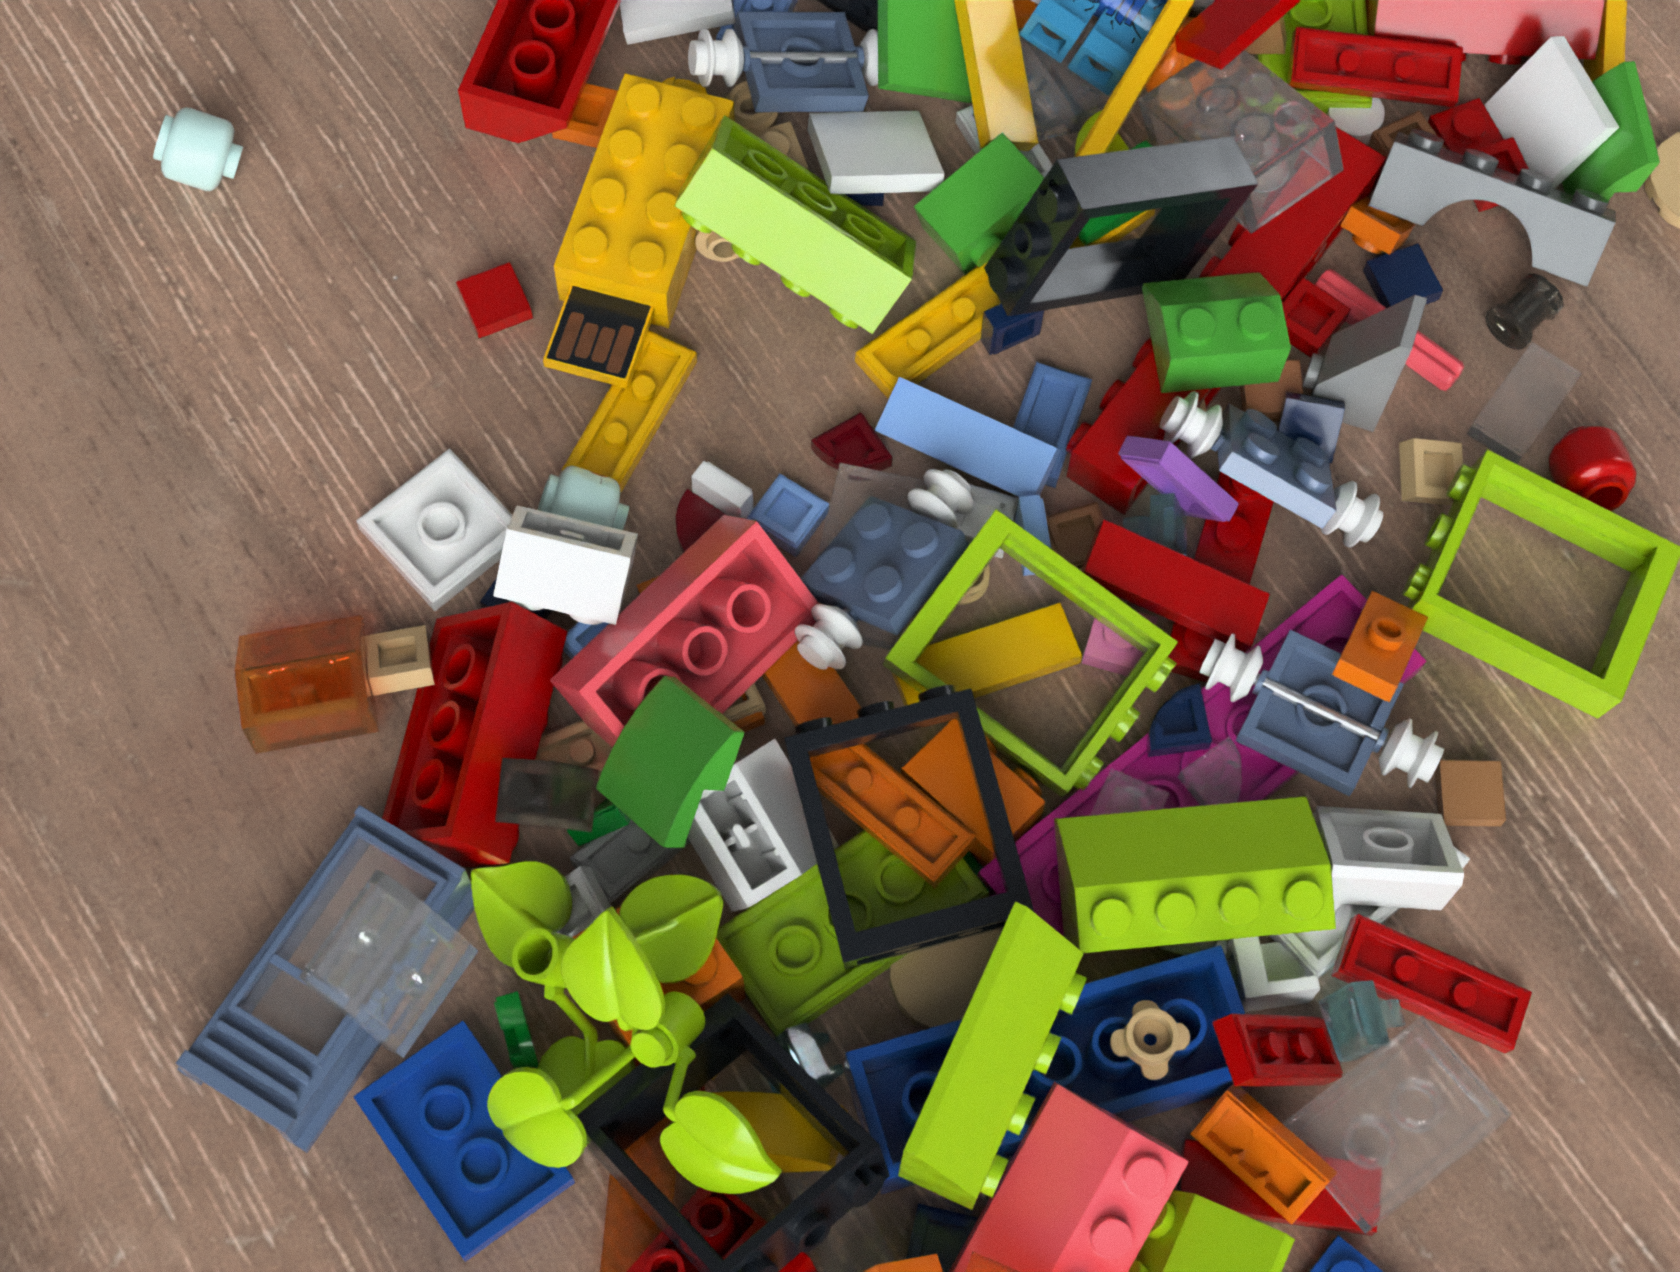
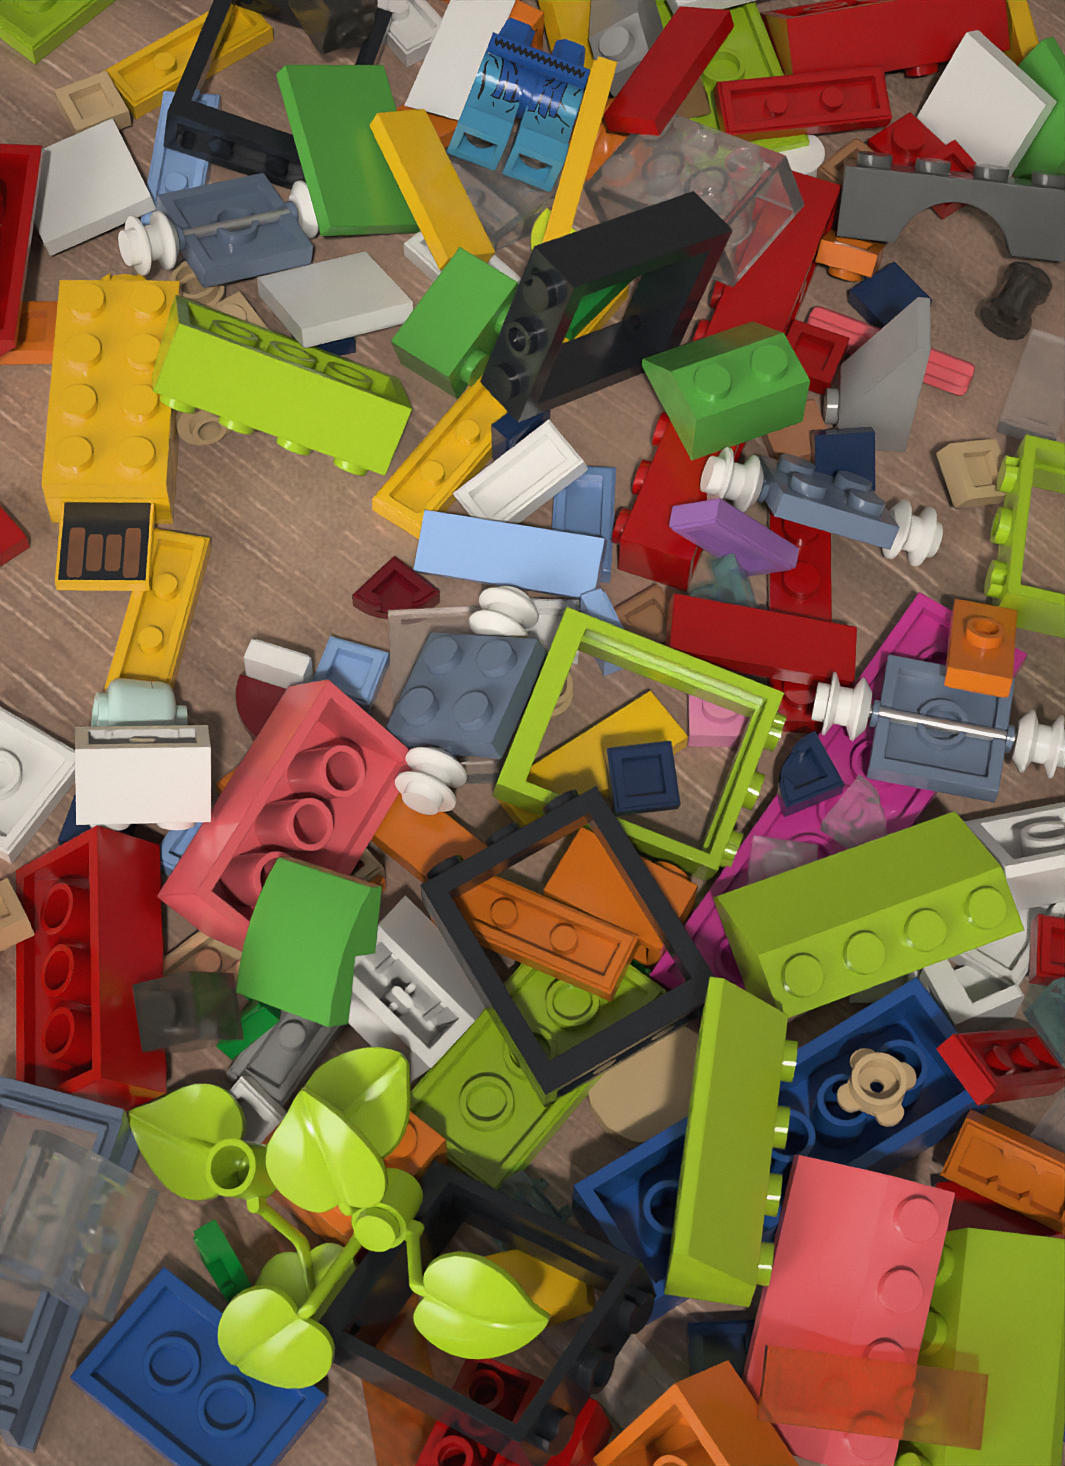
camera: 15 degrees left, 5 degrees down
(1000, 368) = (522, 477): none -> white tile
(1021, 688) = (642, 778): none -> dark blue tile

